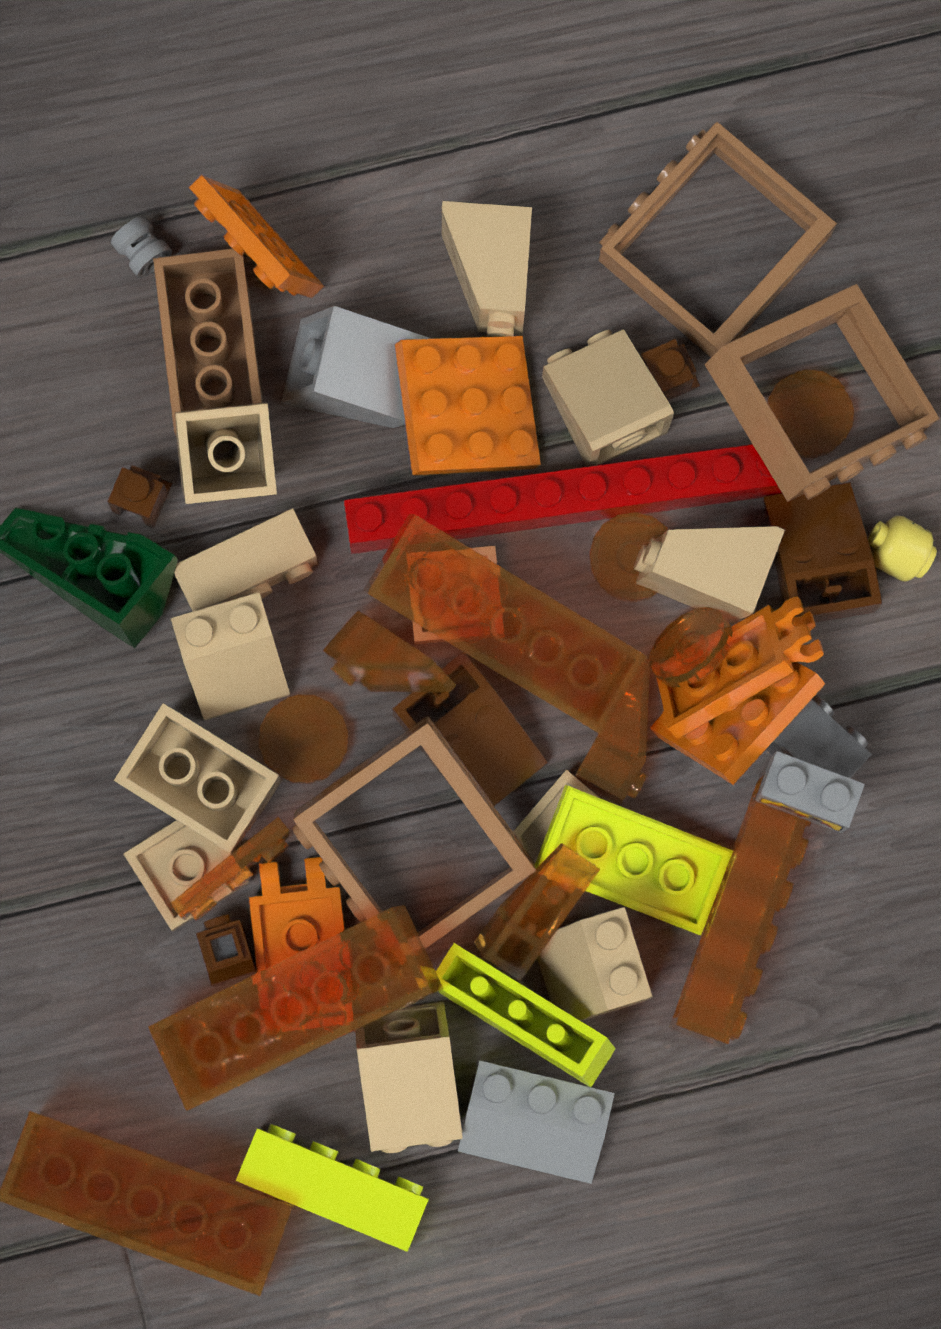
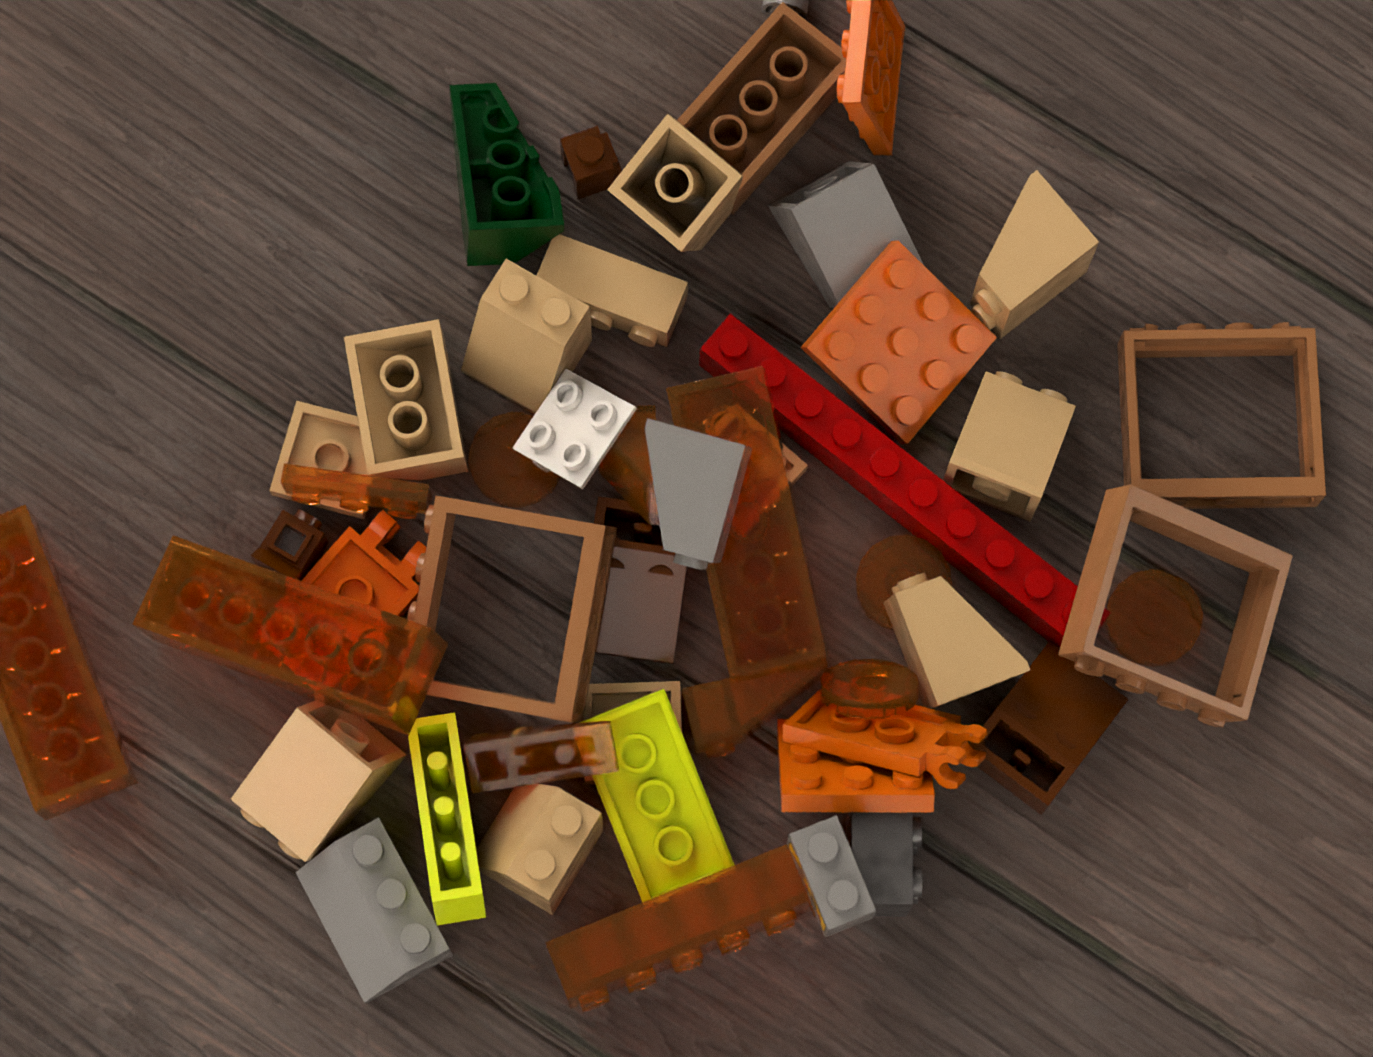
camera: 50 degrees right, 5 degrees down
(329, 681) = (574, 428): none -> white hinge
(333, 1189) = (176, 798): neon yellow brick -> none
(464, 637) = (695, 490): none -> light grey slope
(671, 369) = (1079, 475): reddish brown window -> none
(902, 548) = (1113, 787): light yellow head -> none

